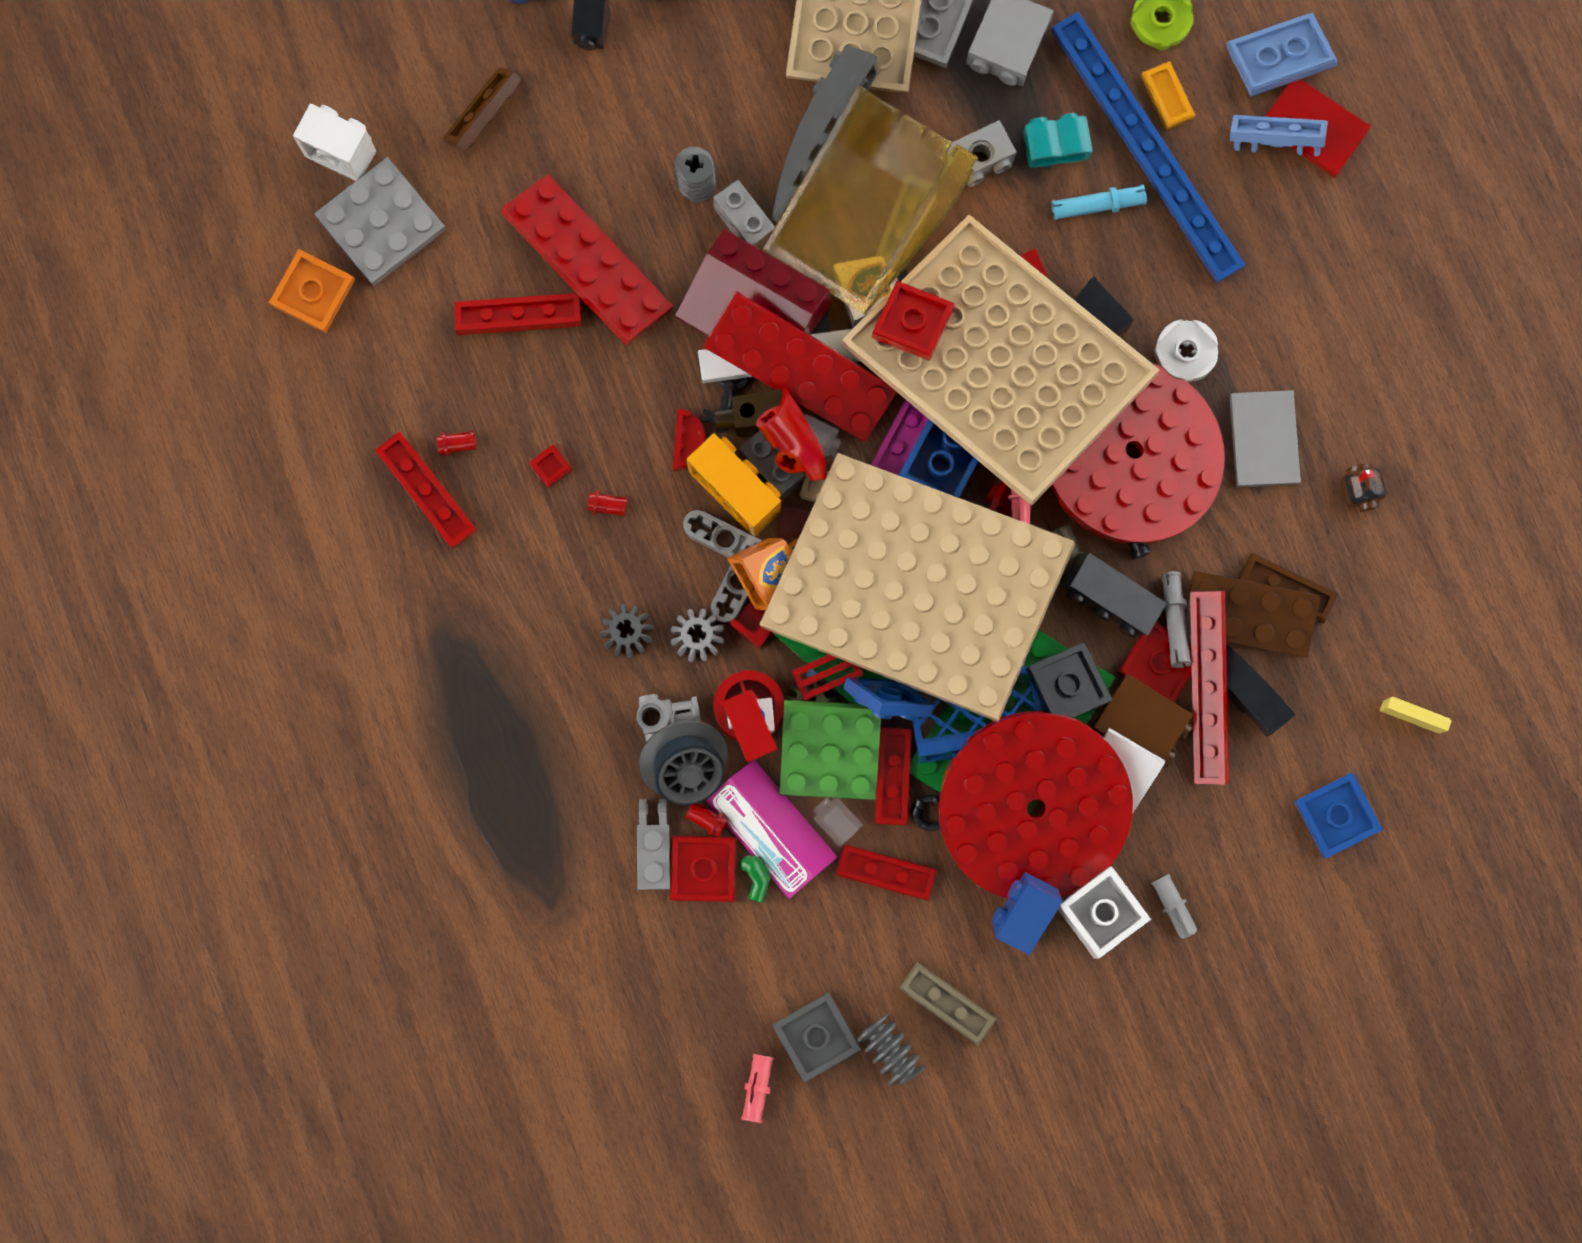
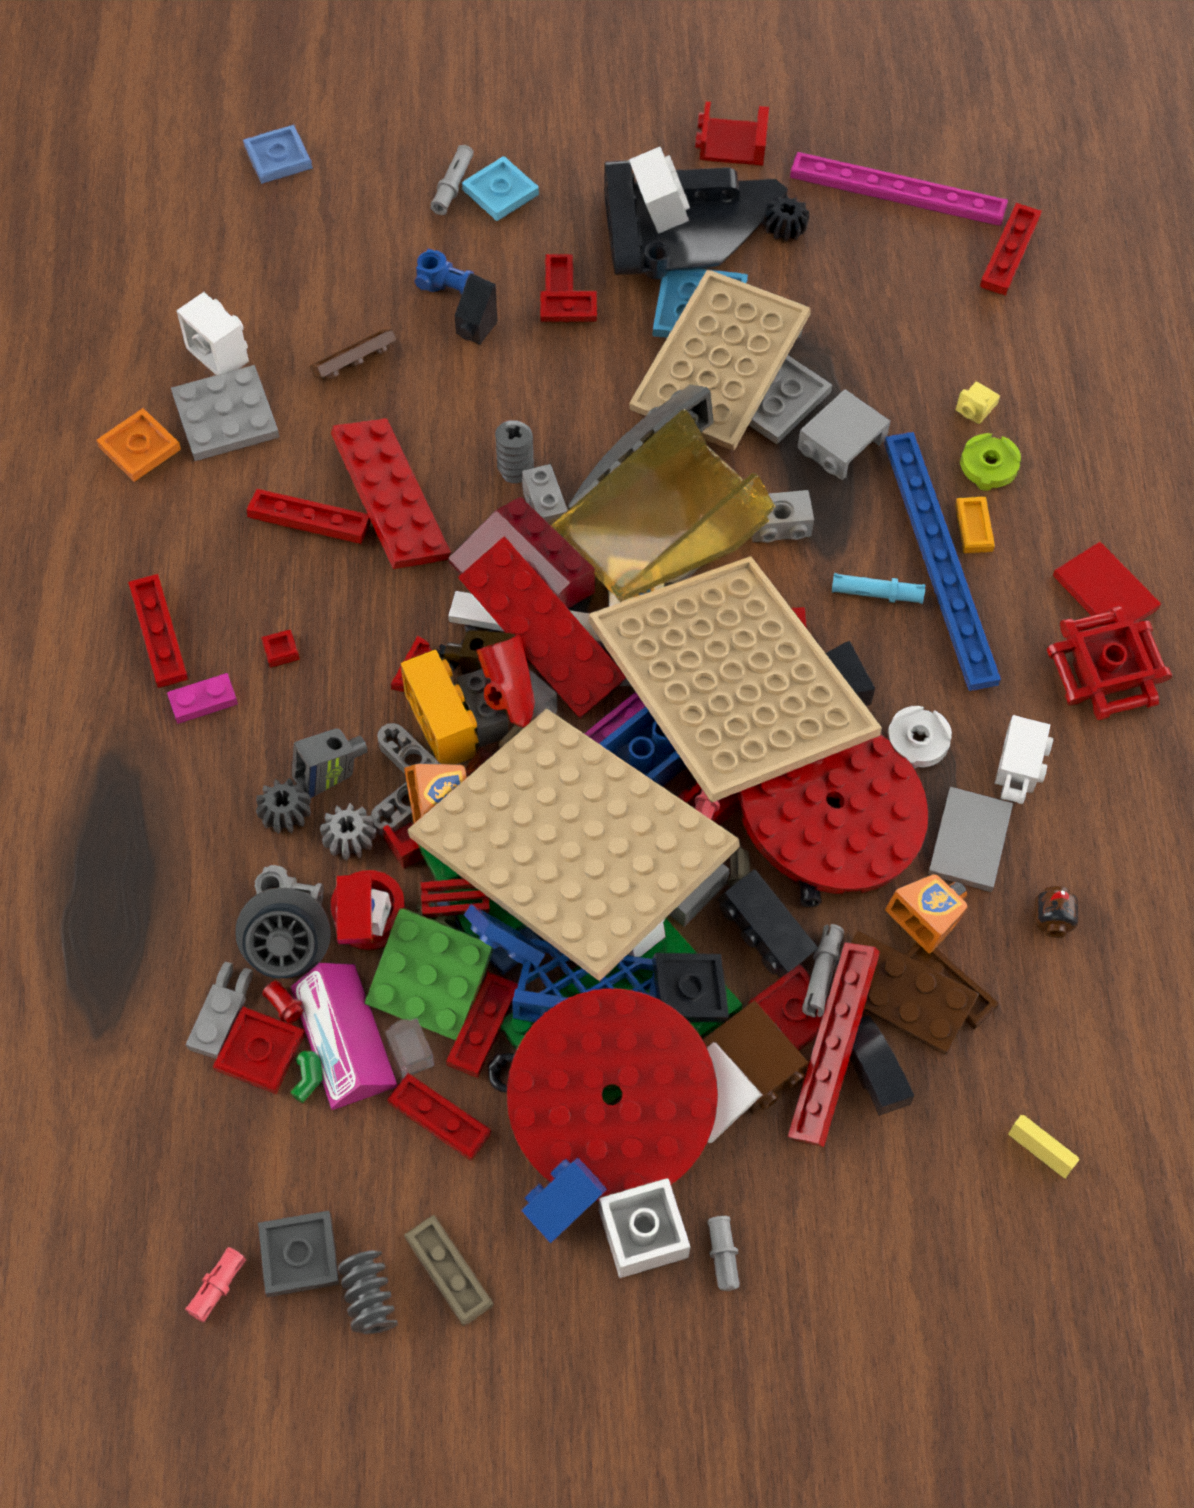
camera: 20 degrees right, 20 degrees down
(456, 442) = (204, 601): red pin -> none
(499, 545) = (202, 698): none -> dark pink plate
(607, 504) = (310, 691): red pin -> none
(641, 580) = (325, 760): none -> dark grey torso
(913, 320) = (662, 617): red tile -> none
(1057, 141) = (857, 527): teal brick -> none
(1253, 528) = (928, 909): none -> orange torso
(1278, 132) = (1068, 579): medium blue plate -> none
(1281, 54) = (1093, 521): medium blue tile -> none
(1289, 341) = (1022, 758): none -> white brick
(1338, 815) = (929, 1220): blue plate -> none
(1341, 209) = (1109, 661): none -> red brick

